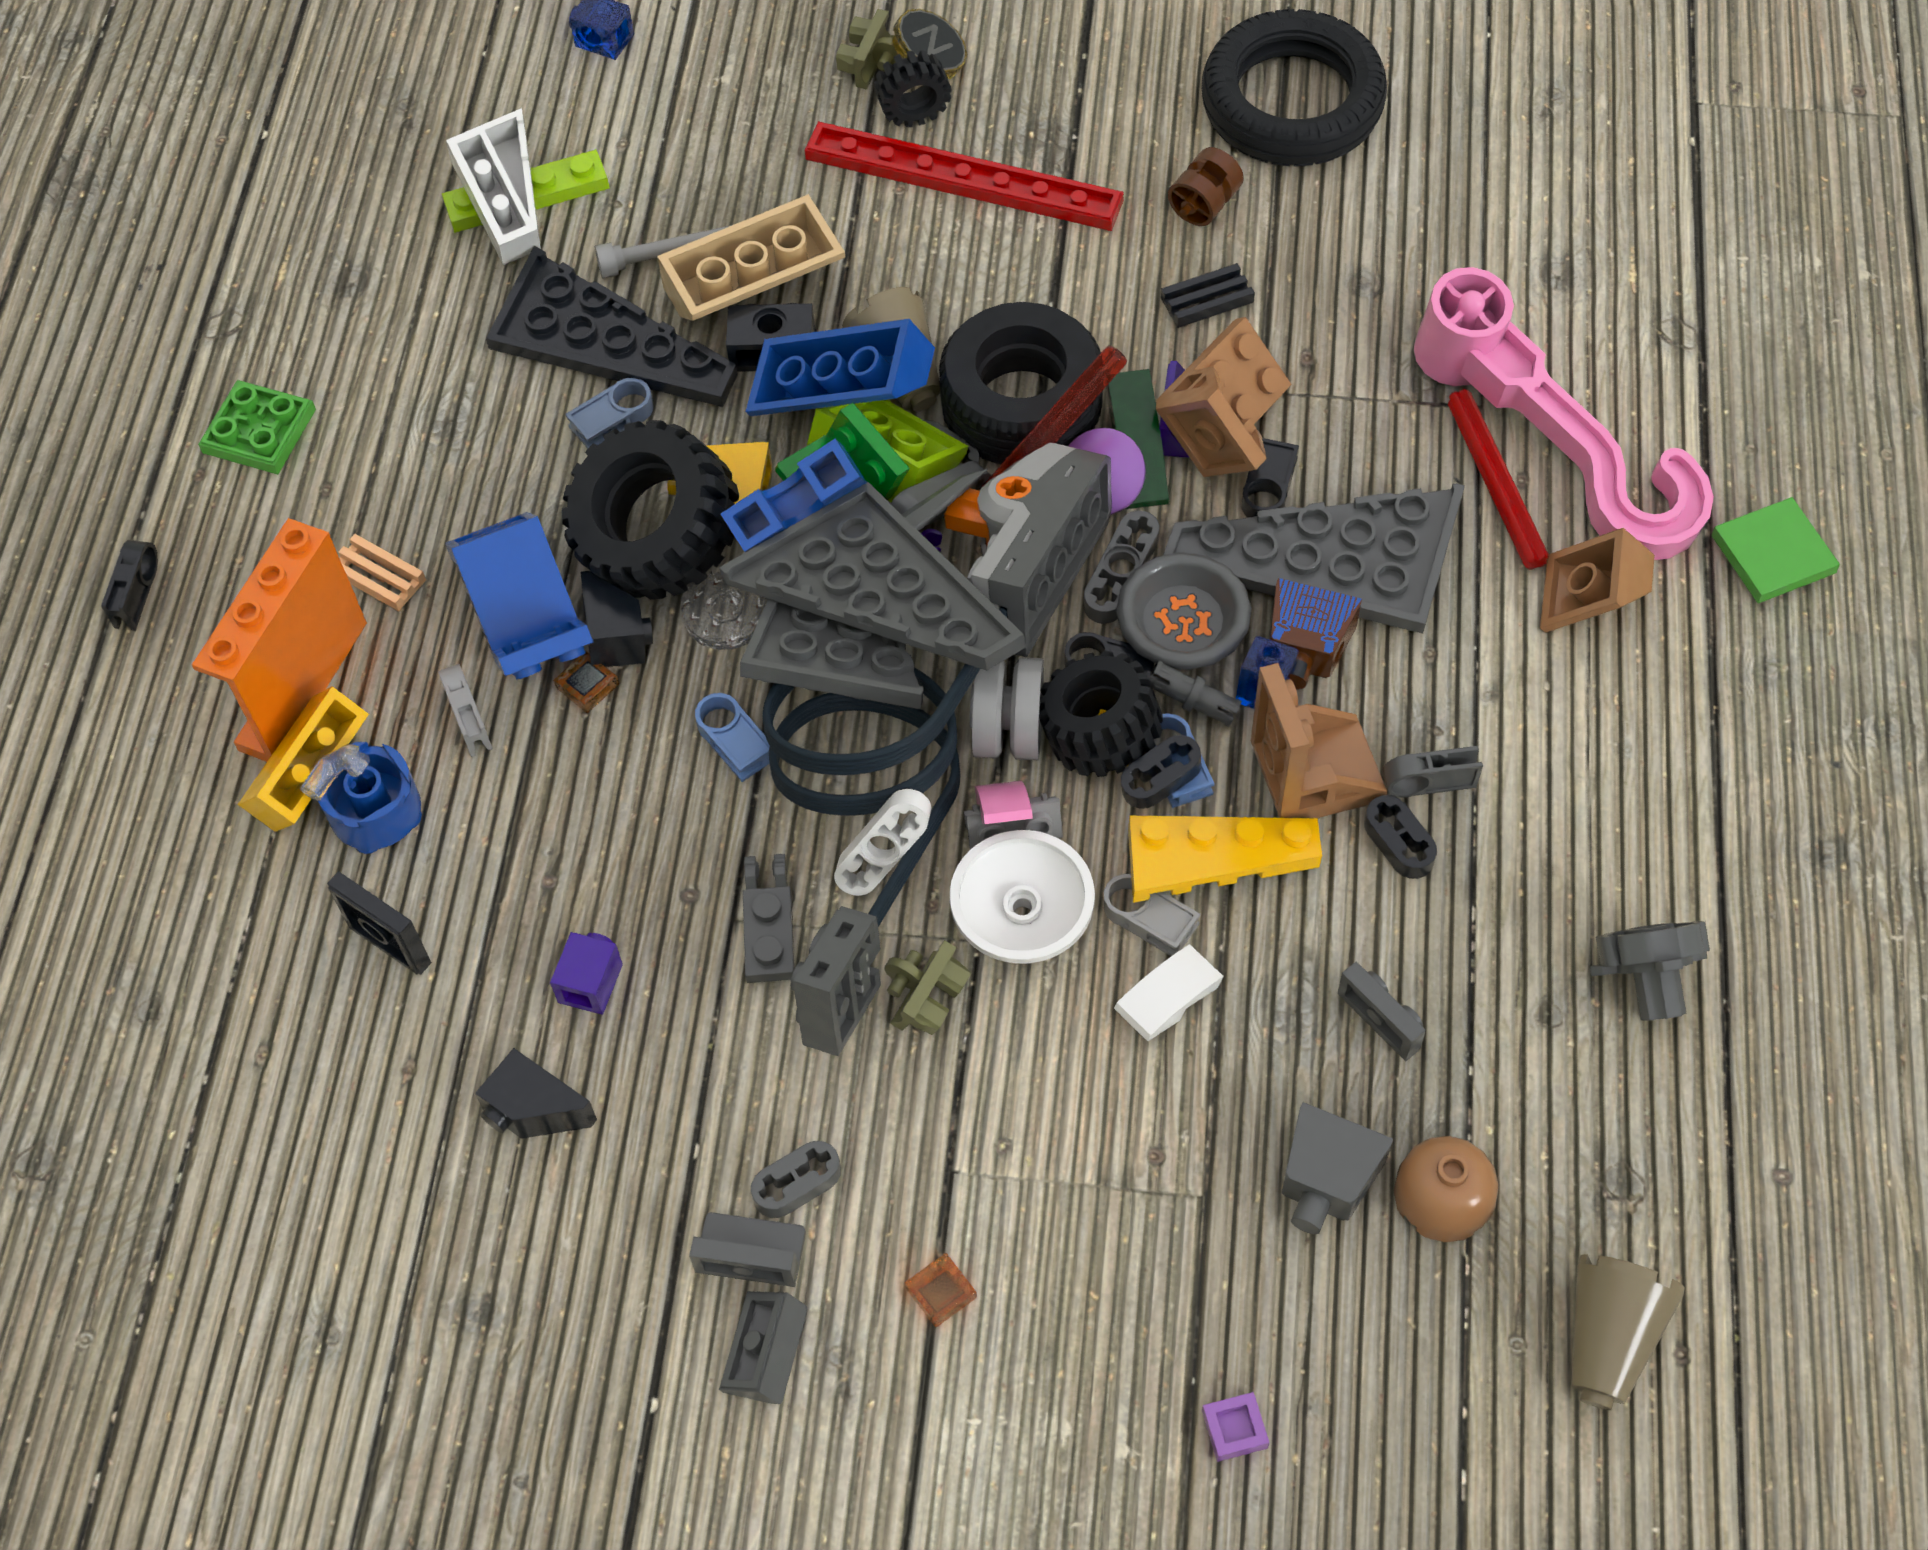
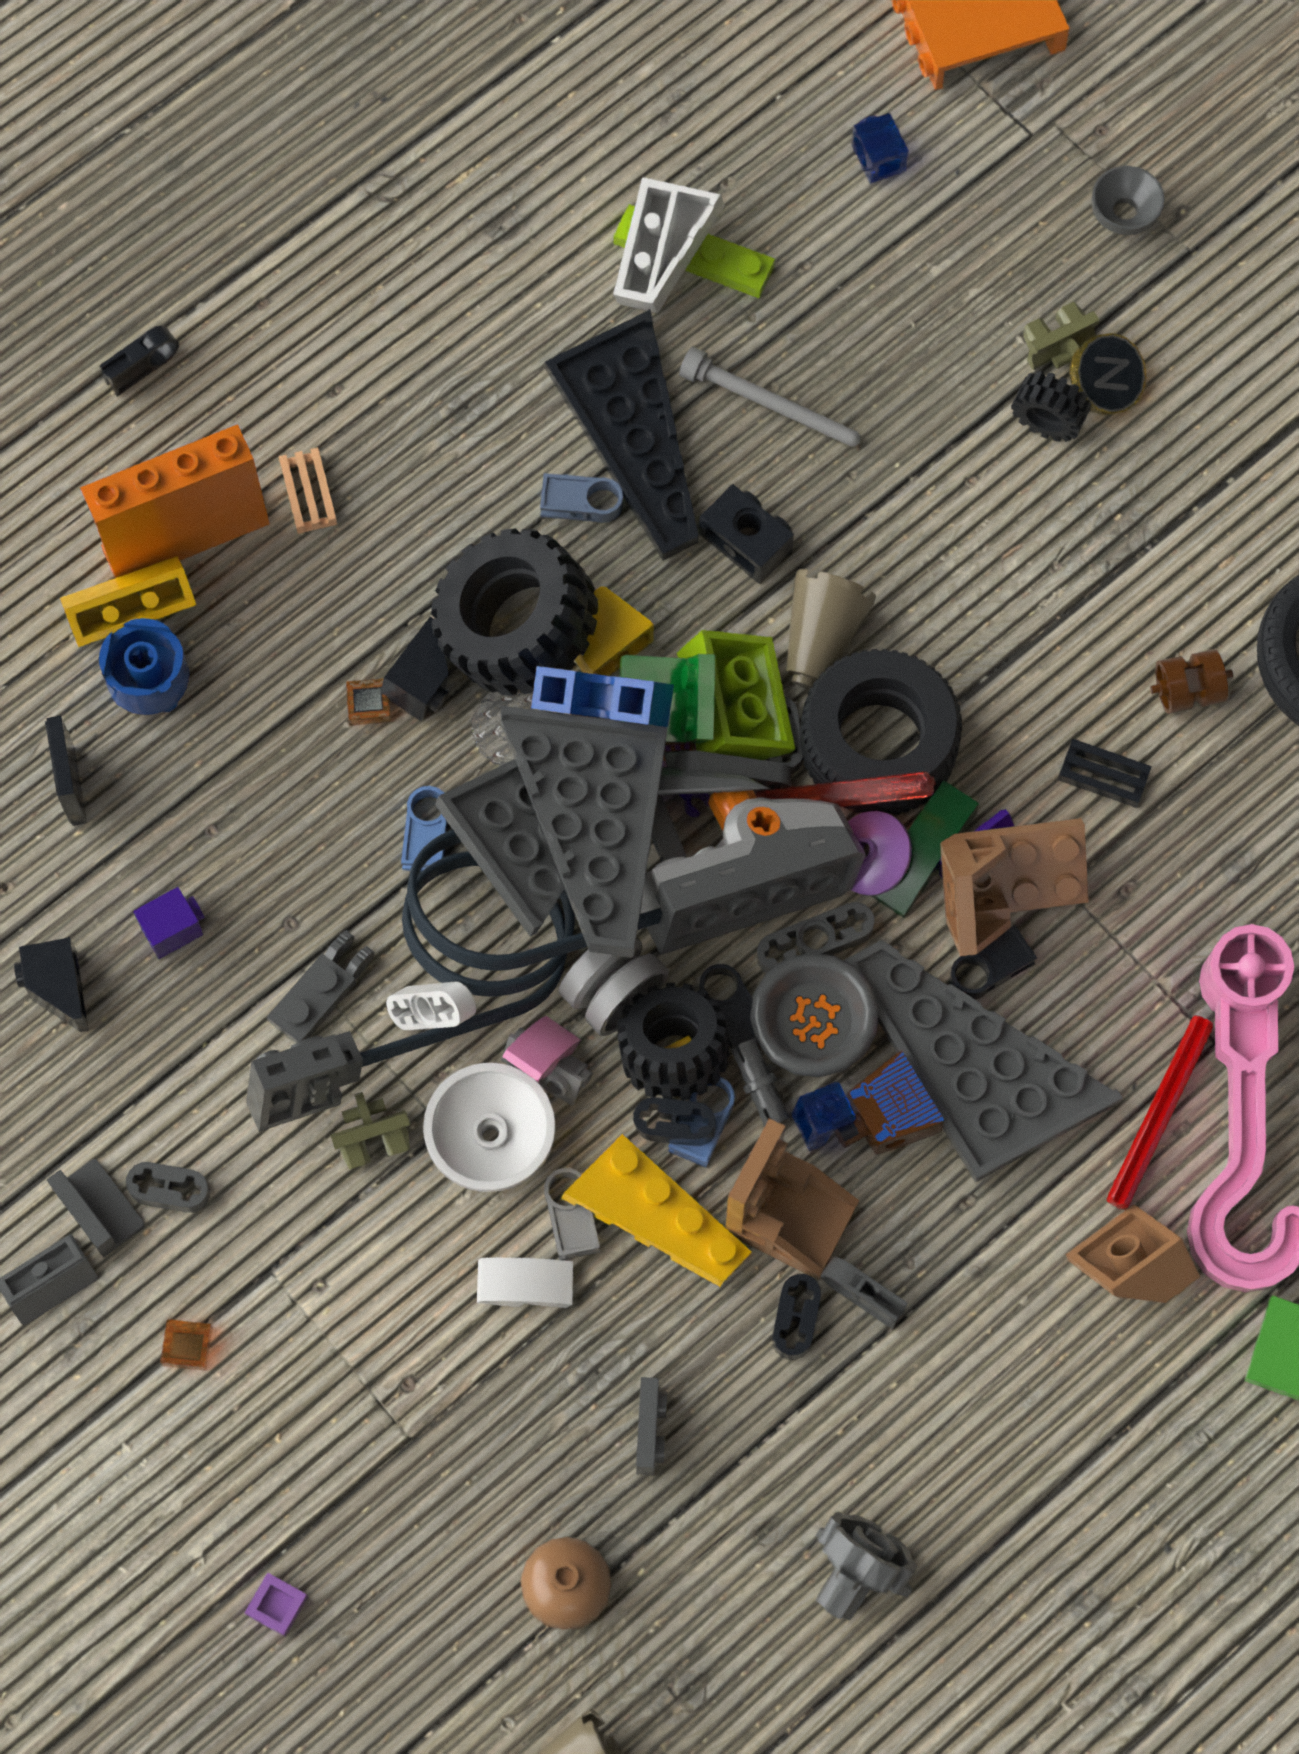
camera: 40 degrees right, 10 degrees up
(257, 427) = (332, 298): bright green tile -> none
(332, 764) = (128, 629): clear arm -> none
(464, 707) = (267, 651): light grey piece -> none
(519, 595) = (368, 598): blue bracket -> none
(748, 258) = (784, 458): tan slope -> none
(840, 367) = (746, 614): blue slope -> none
(965, 176) = (1028, 513): red tile -> none
(1331, 1166) = (502, 1498): dark grey torso -> none

